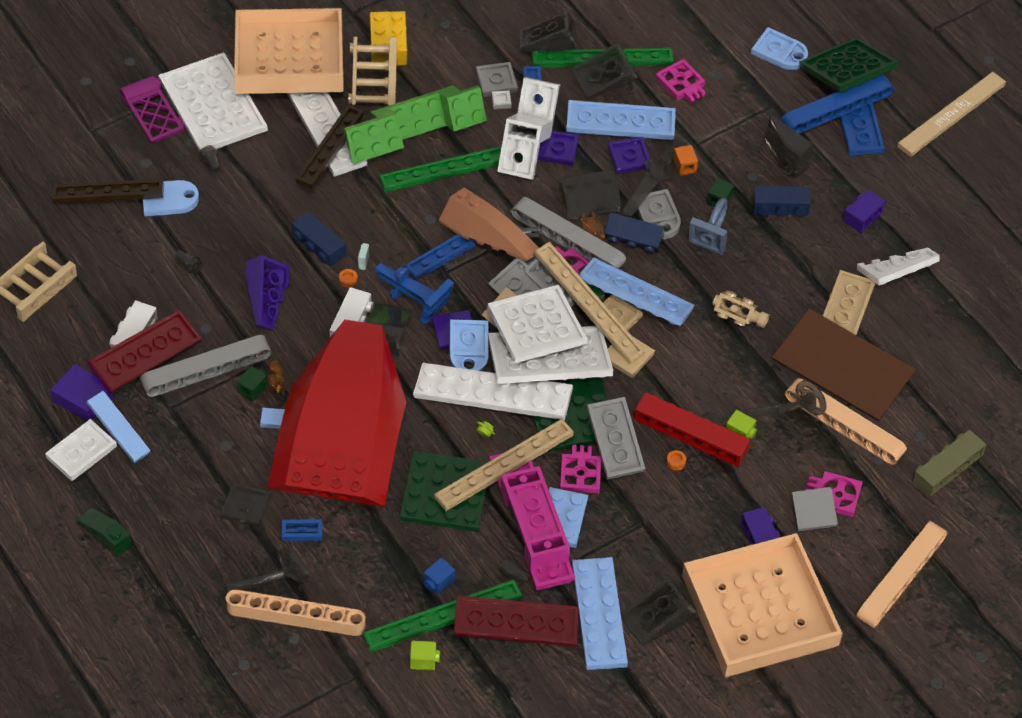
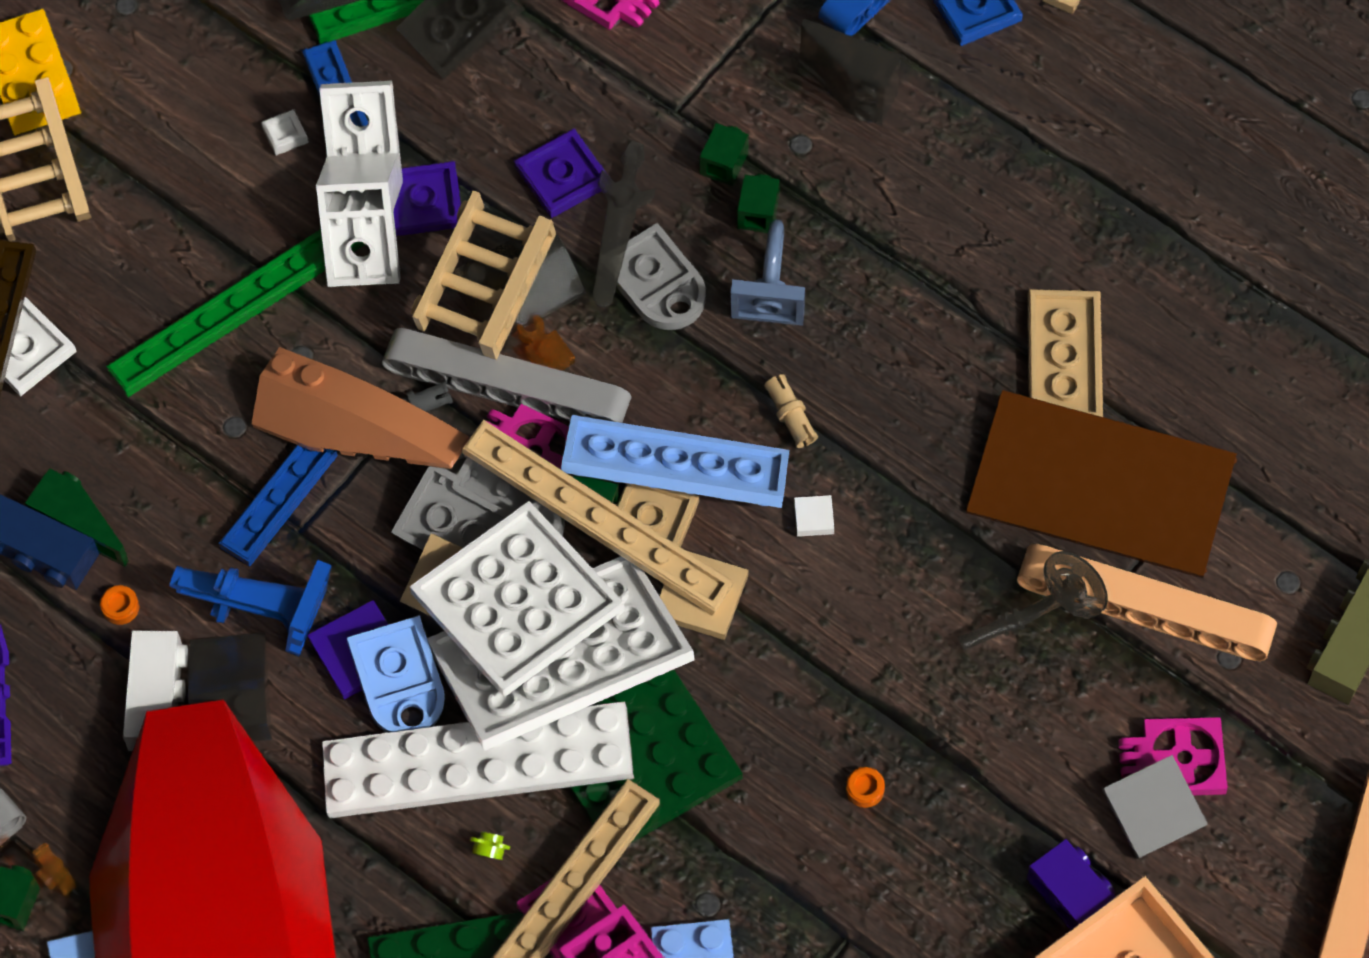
camera: 15 degrees left, 10 degrees up
(340, 225) = (67, 502): none -> dark green slope
(363, 256) = (135, 551): light aqua tile -> none
(413, 117) = (131, 229): bright green bracket -> none
(496, 78) = (260, 91): light grey tile -> none
(579, 197) = (505, 301): none -> tan fence
(580, 457) = (689, 841): dark pink piece -> none
(615, 438) = (741, 785): light grey plate -> none
(621, 120) = (522, 106): light blue plate -> none
(634, 232) = (628, 337): dark blue brick -> none
(685, 160) = (670, 152): orange brick -> none
(692, 429) = (874, 714): red brick -> none
(696, 337) = (814, 515): none -> white tile
(701, 288) = (791, 411): none -> tan pin
(711, 168) = (724, 154): none -> dark green brick
(736, 310) = (869, 440): tan brick -> none
(742, 424) = (963, 680): lime brick -> none
(781, 200) = (874, 181): dark blue brick -> none
(864, 211) = (1030, 154): dark purple brick -> none
(898, 265) = (1129, 249): white wing -> none

